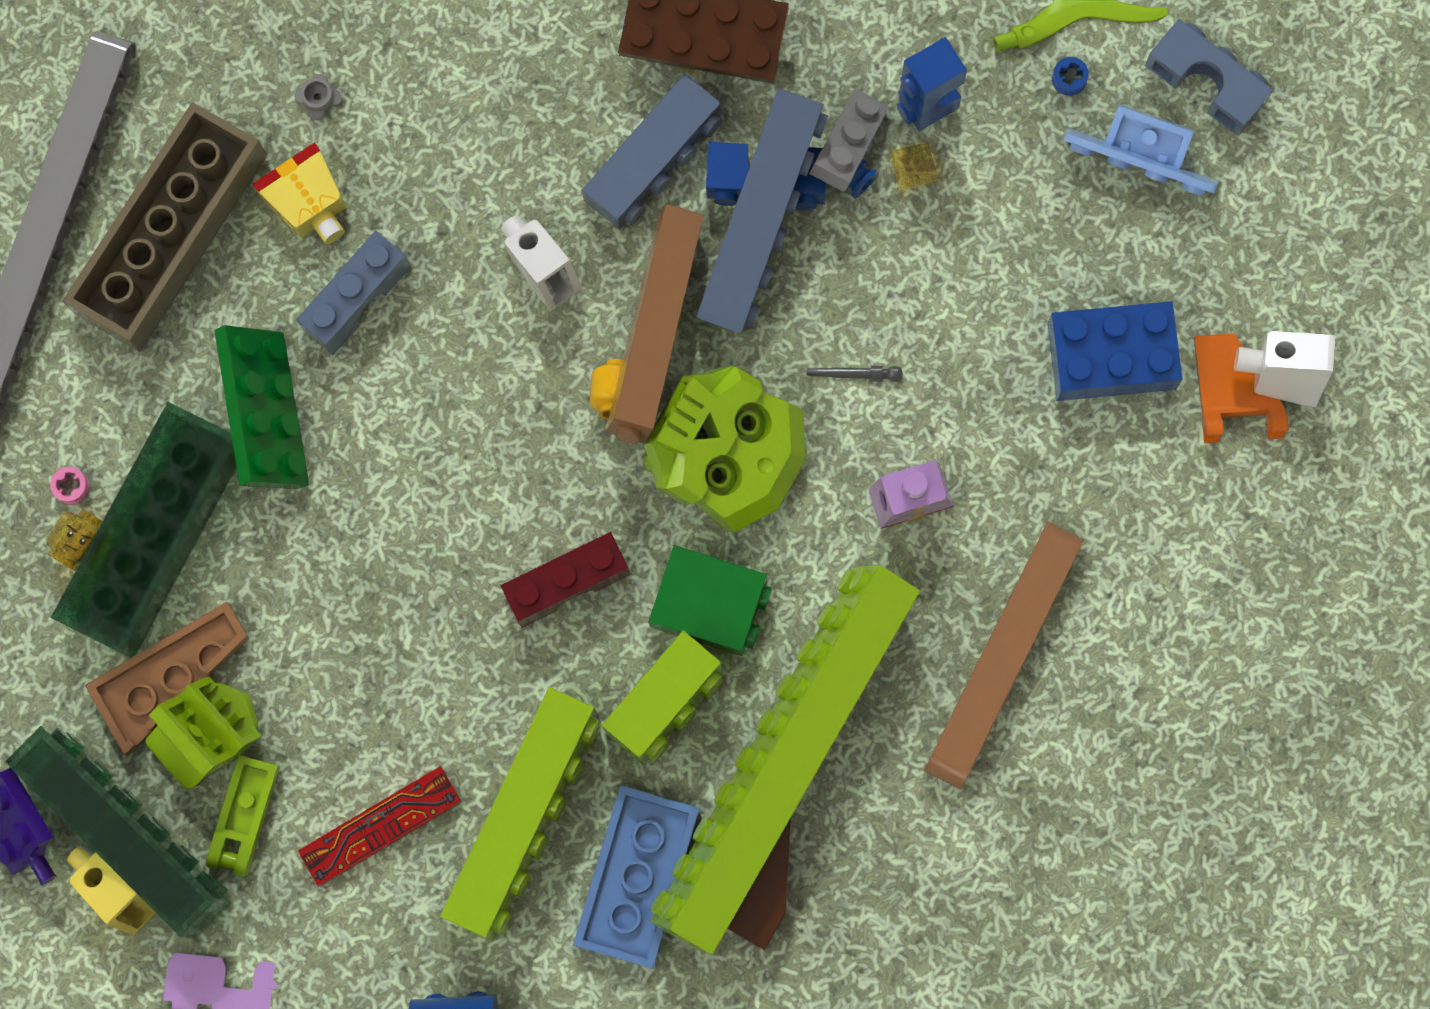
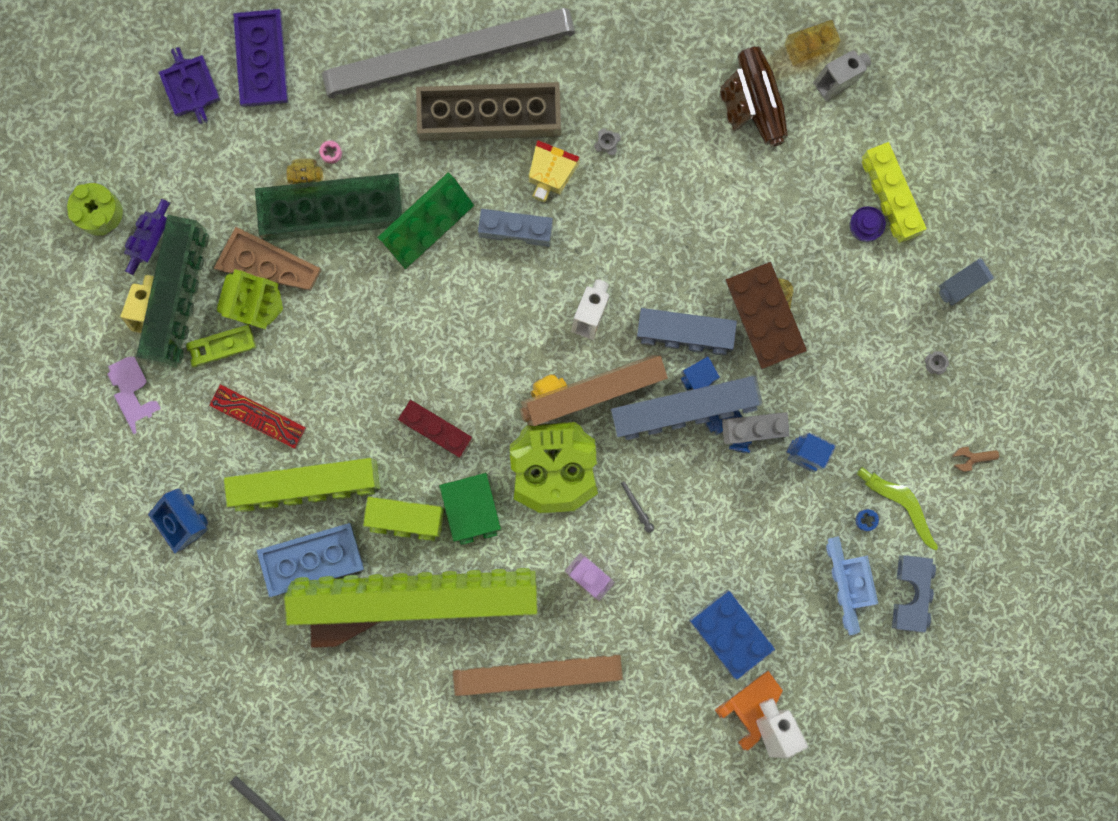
camera: 55 degrees right, 5 degrees up
(913, 166) = (766, 468): clear yellow tile -> none

